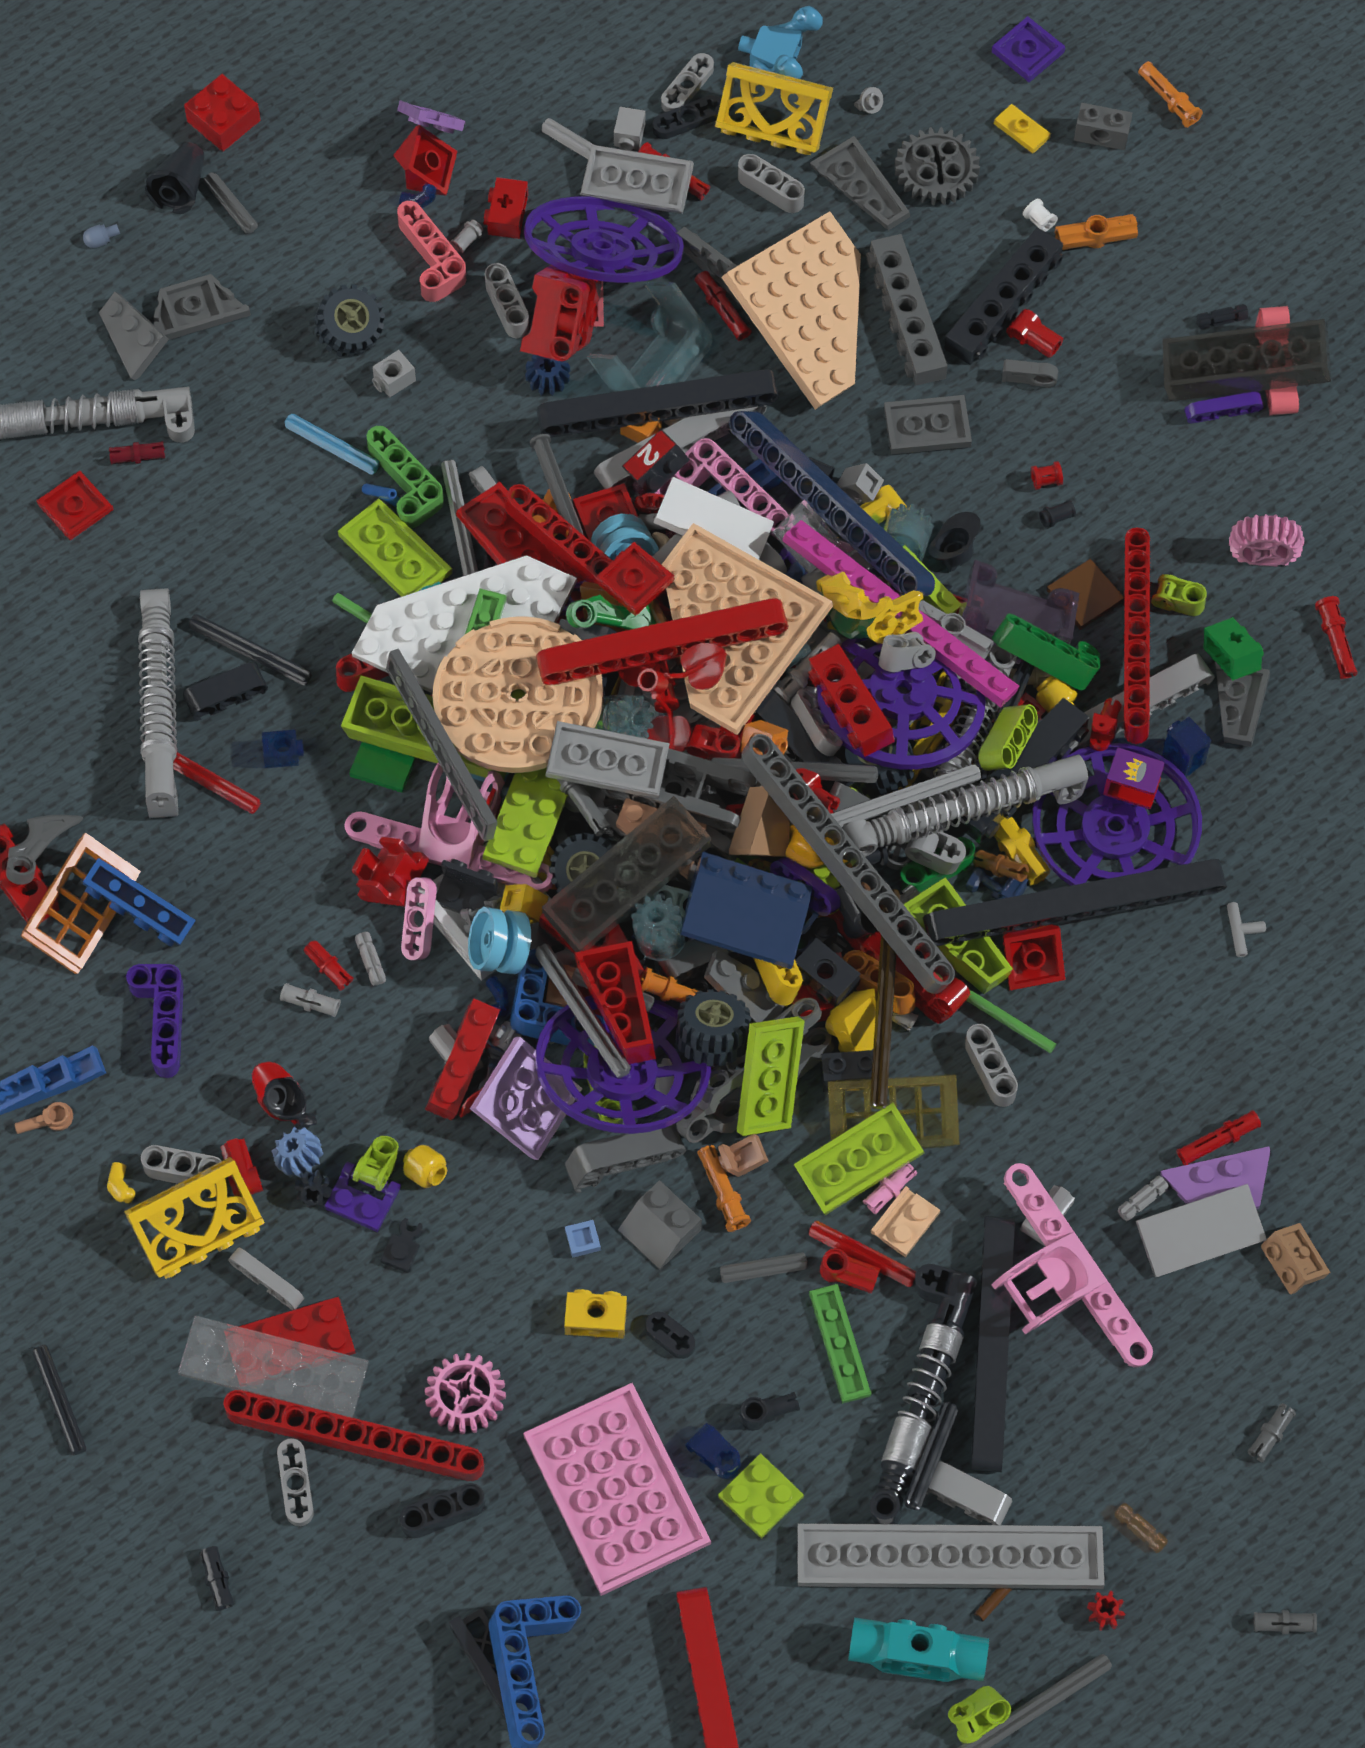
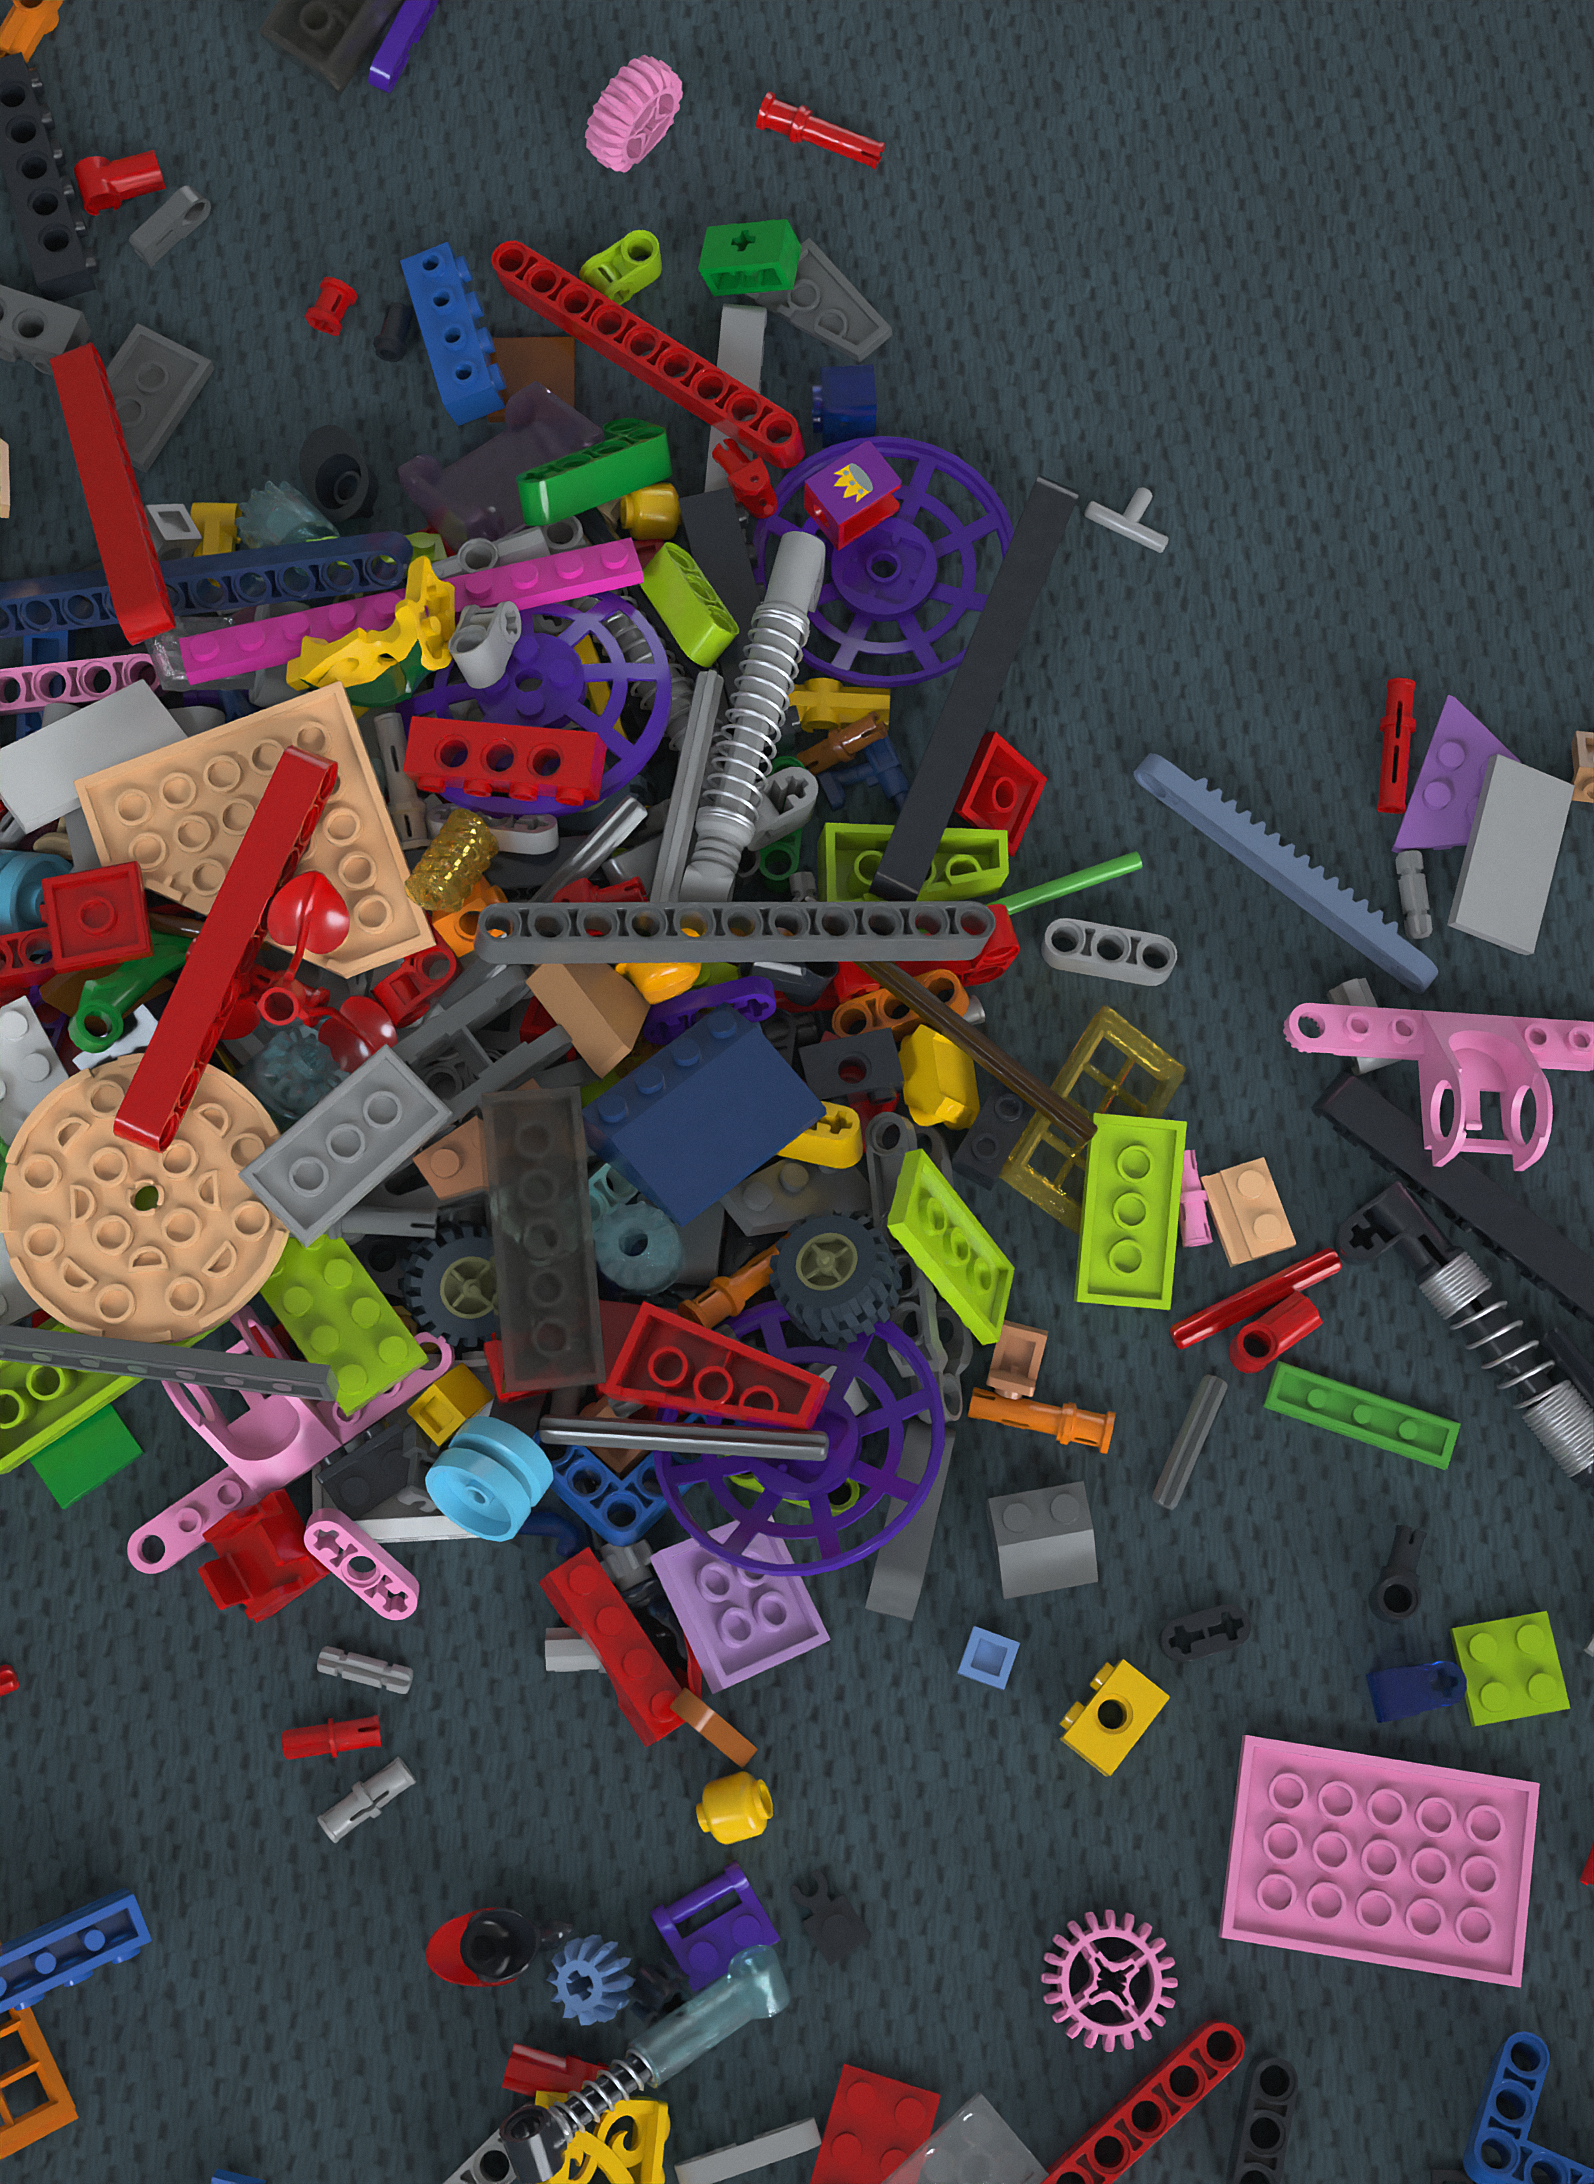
camera: 55 degrees left, 10 degrees up
(162, 1020) = (244, 2045): dark purple beam -> none
(343, 1226) = (750, 1990): none -> piece
(377, 1162) = (693, 1881): lime piece -> none
(454, 1124) = (713, 1727): none -> dark orange beam
(780, 710) = (452, 863): none -> clear yellow piece
(857, 442) = (112, 495): none -> red beam
(1076, 540) = (453, 334): none -> blue brick
(1104, 1125) = (1287, 872): none -> sand blue gear

